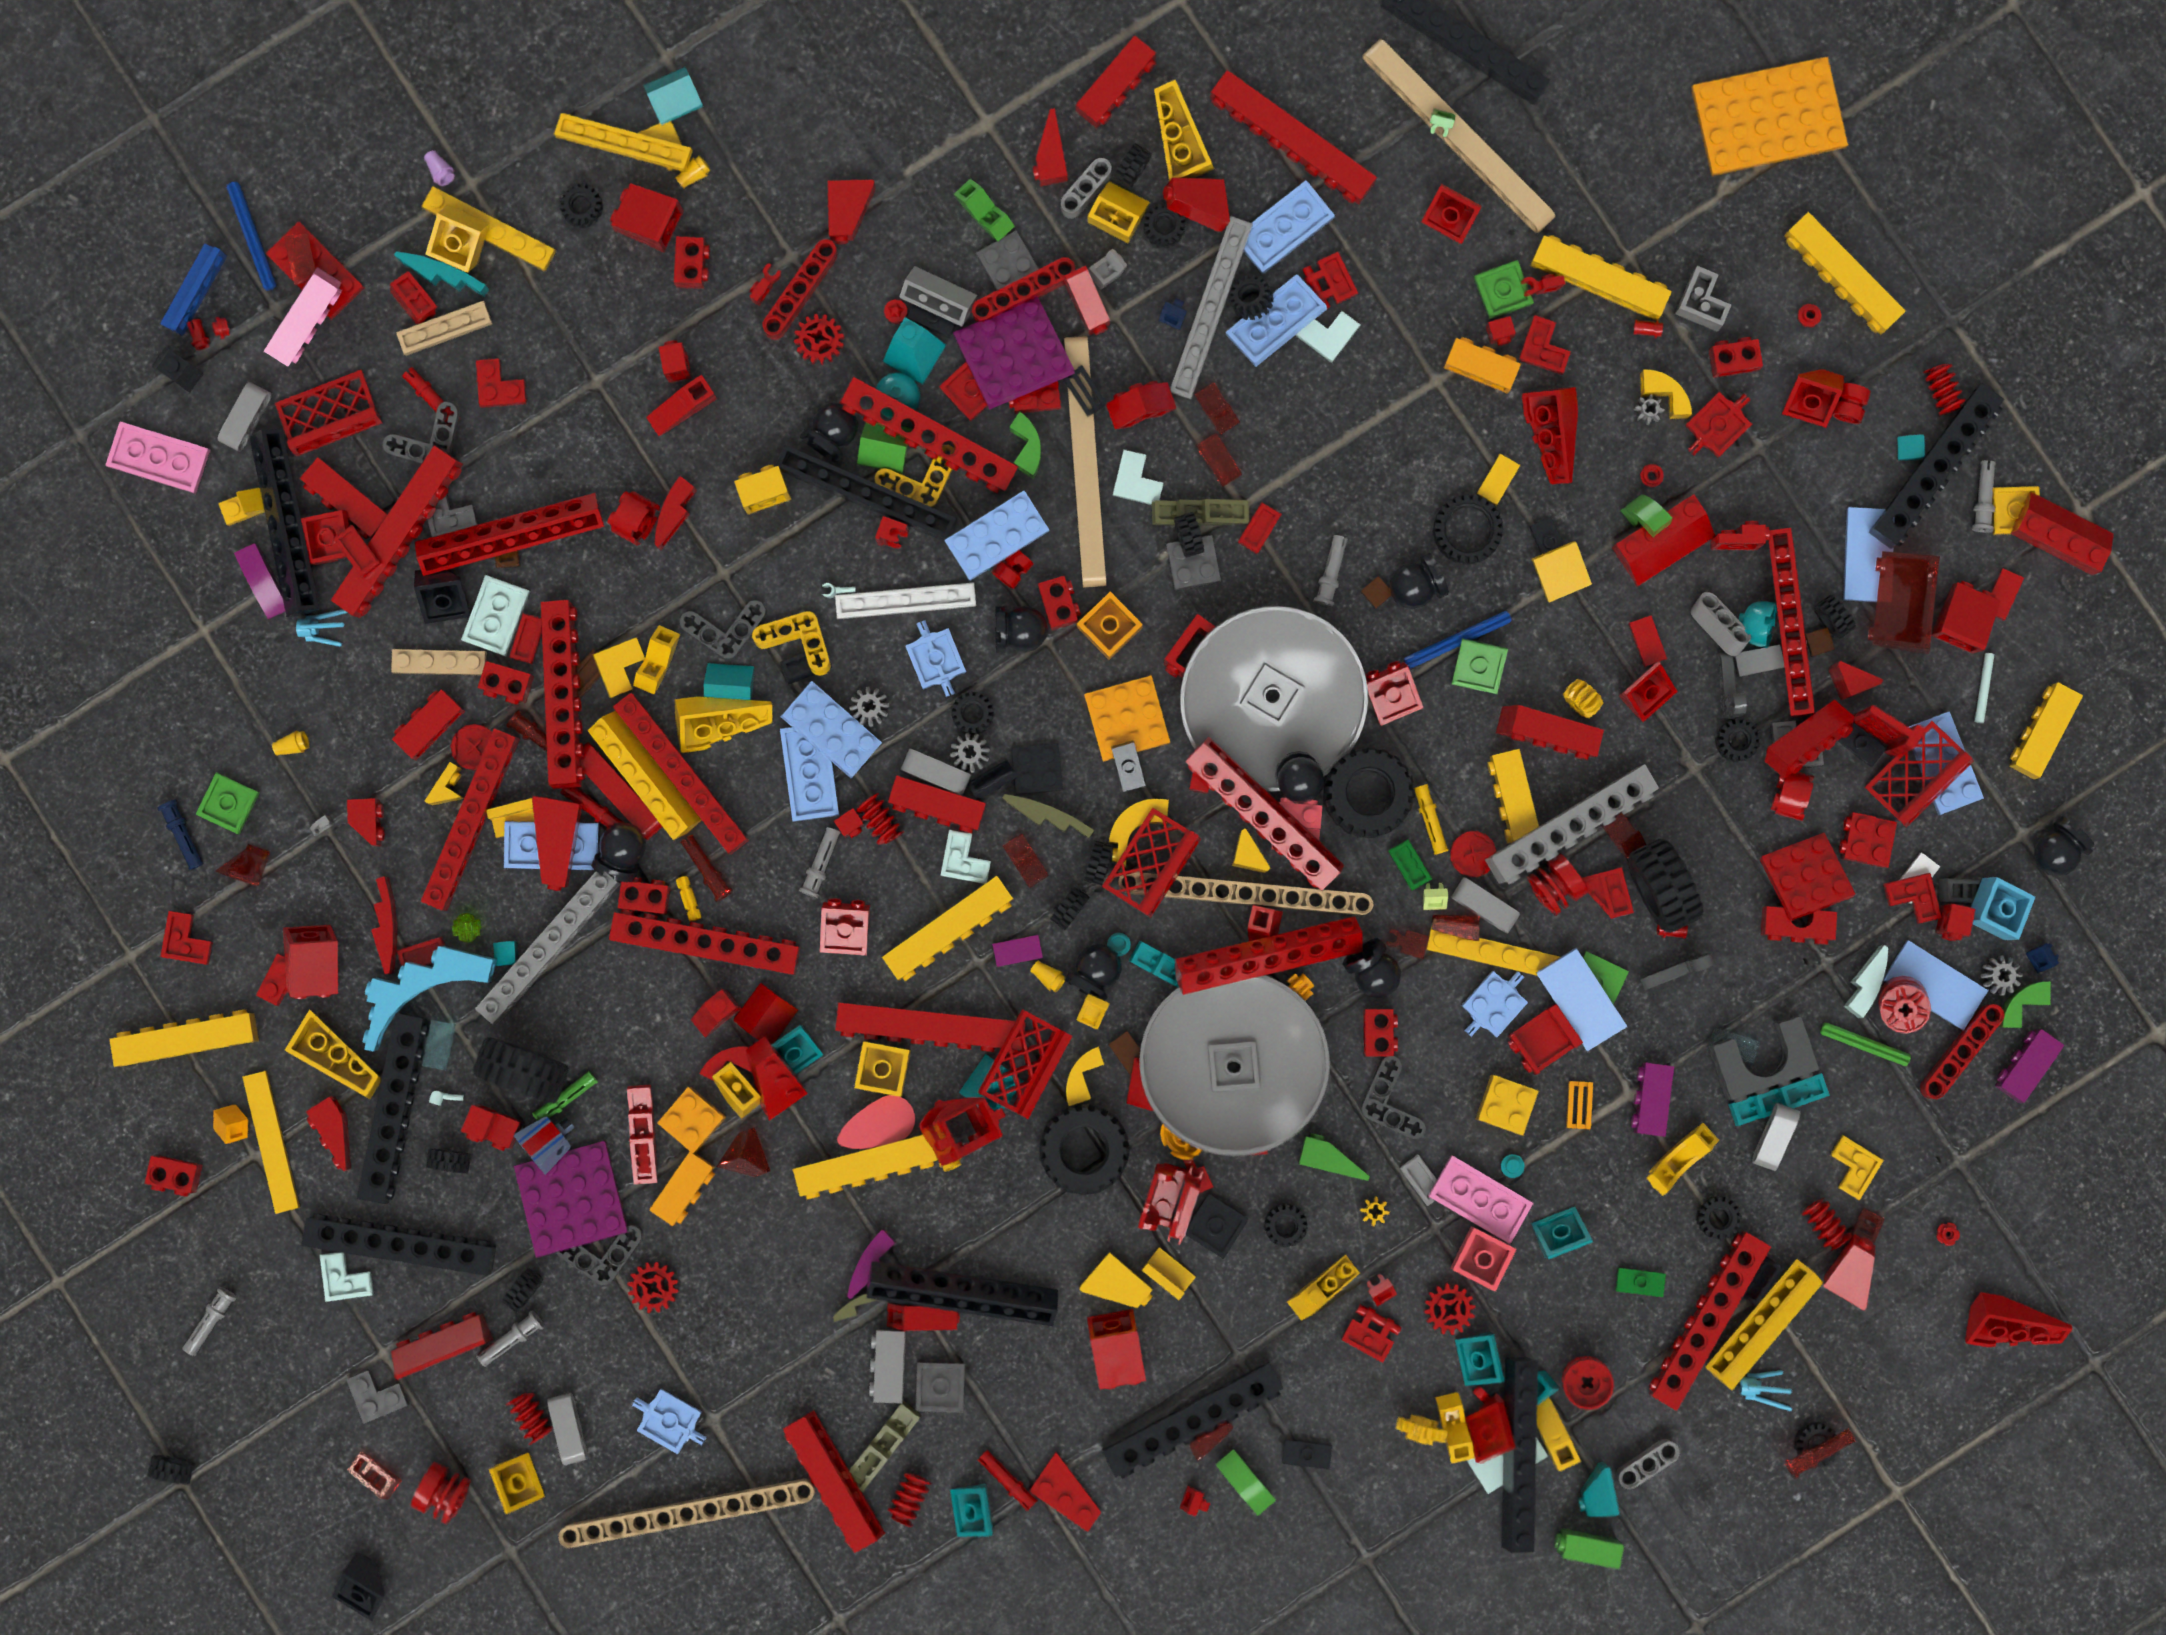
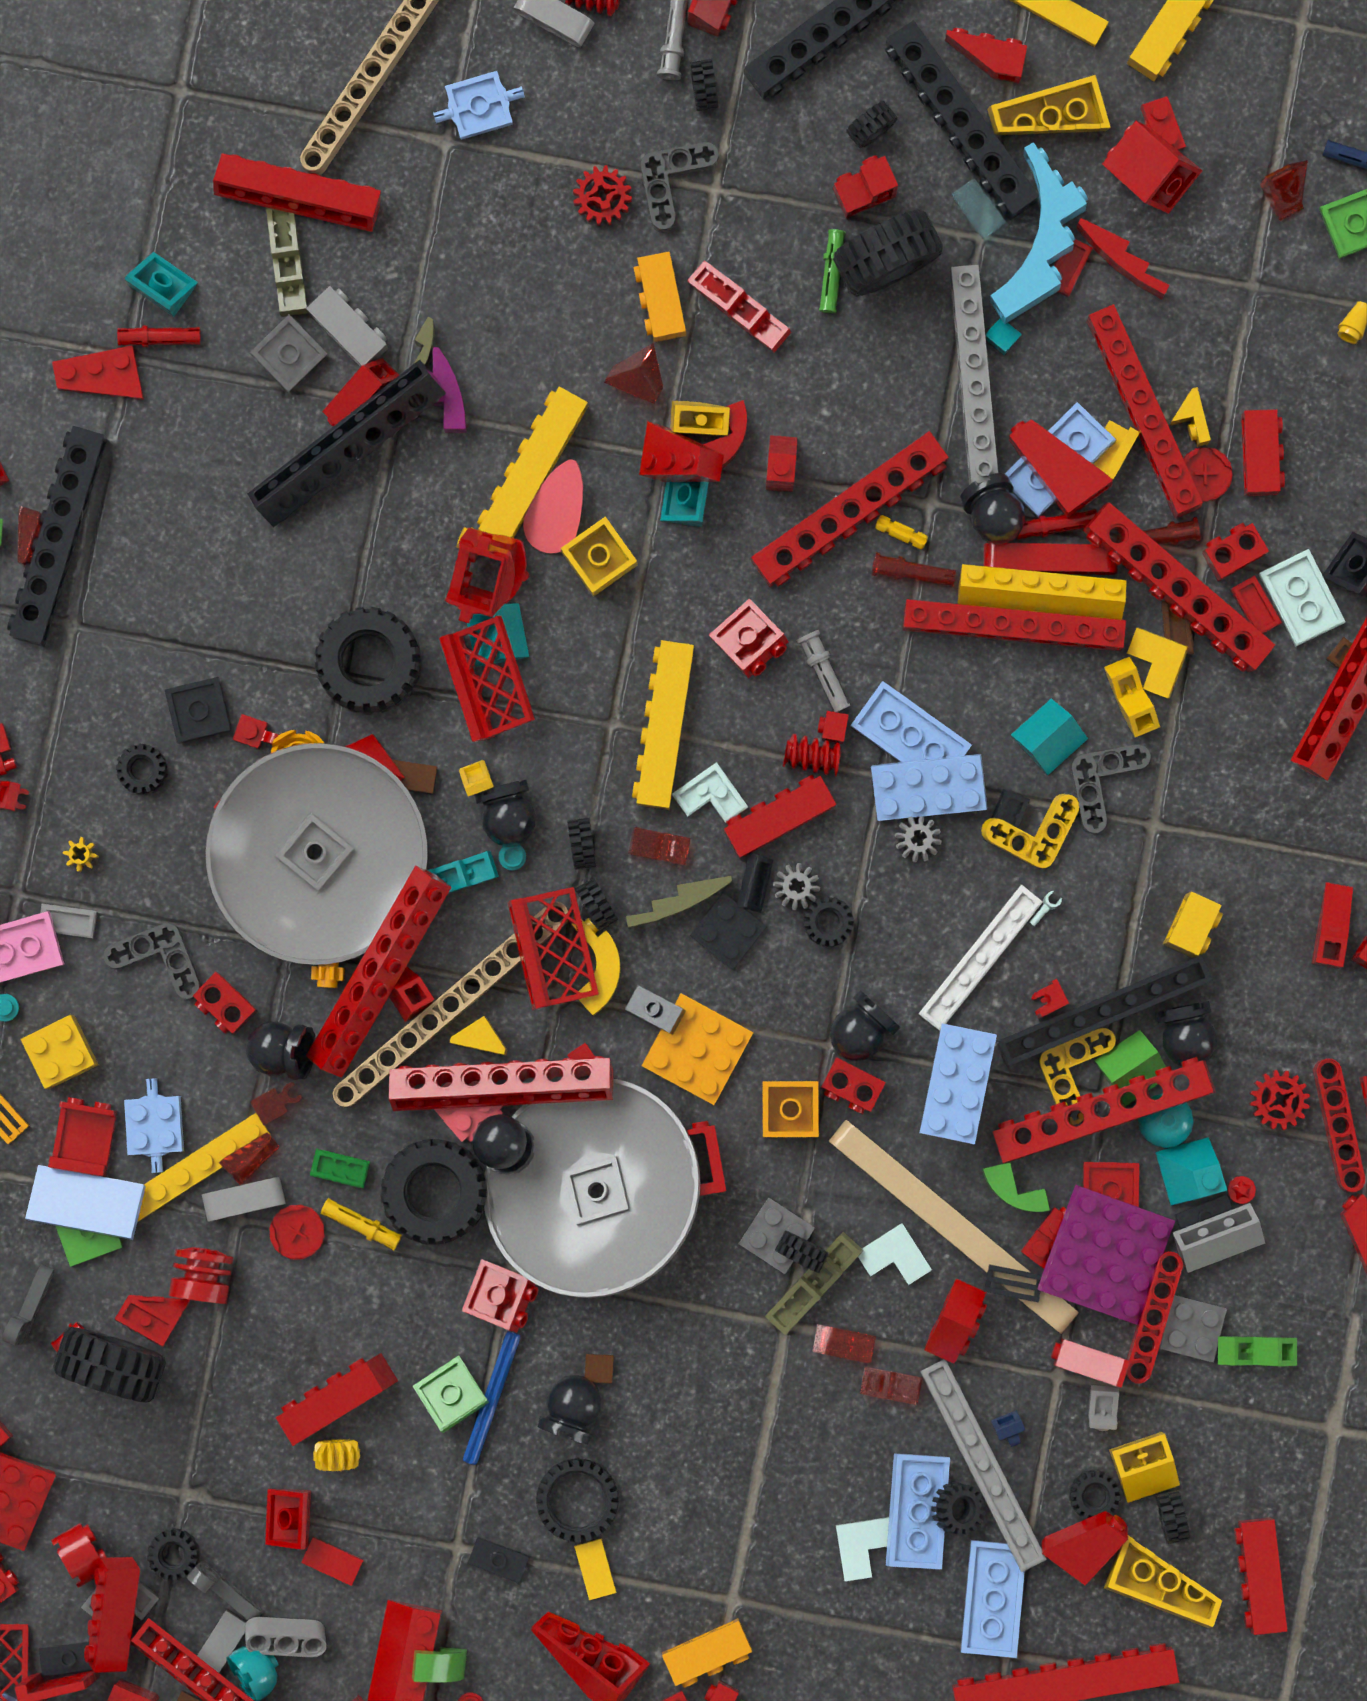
camera: 135 degrees right, 0 degrees up
(178, 943) = (1271, 72): red plate -> none
(321, 825) = (1260, 284): light grey tile -> none
(365, 818) = (1229, 324): red slope -> none
(438, 662) = (1307, 512): tan plate -> none
(438, 1096) = (935, 167): light aqua hand -> none
(466, 927) = (1055, 323): clear neon green gear -> none
(545, 1142) = (810, 219): torso -> none
(572, 1201) = (742, 196): magenta plate -> none
(633, 517) = (1273, 792): red brick -> none
(643, 902) = (934, 491): red brick -> none
(673, 511) = (1247, 831): red slope -> none
(691, 1120) = (711, 358): light orange brick -> none
(711, 719) = (1037, 693): yellow wedge -> none
(765, 1014) = (740, 503): red slope -> none
(909, 1499) = (221, 240): red piece -> none
(924, 1026) = (601, 626): red brick -> none
(935, 658) = (905, 934): light blue plate -> none
(935, 772) = (807, 841): light grey beam -> none
(1011, 568) = (919, 1073): red wheel -> none
(1017, 951) = (589, 766): magenta tile -> none
(1049, 976) = (542, 771): yellow cone -> none
(1050, 160) = (1250, 1454): red slope -> none
(1076, 1086) = (425, 704): yellow brick -> none
(1088, 177) = (1199, 1471): light grey beam -> none
(1116, 1349) = (177, 528): red slope -> none
(1117, 1283) = (231, 581): yellow slope -> none
(1166, 1197) = (261, 688): red animal -> none
(1168, 1273) = (197, 632): yellow panel -> none
(1259, 528) = (751, 1321): red tile -> none
(1323, 1288) = (59, 750): yellow slope -> none
(1325, 1156) = (164, 857): bright green slope -> none
(1329, 582) = (647, 1335): light grey pin -> none
(1336, 278) = (904, 1600): red plate -> none
(1435, 898) = (291, 1161): yellowish green tile -> none
(1501, 861) = (266, 1245): light grey brick -> none
(1513, 793) = (308, 1313): yellow brick -> none
(1561, 571) = (463, 1545): yellow tile -> none
(1624, 835) = (187, 1376): clear red slope -> none

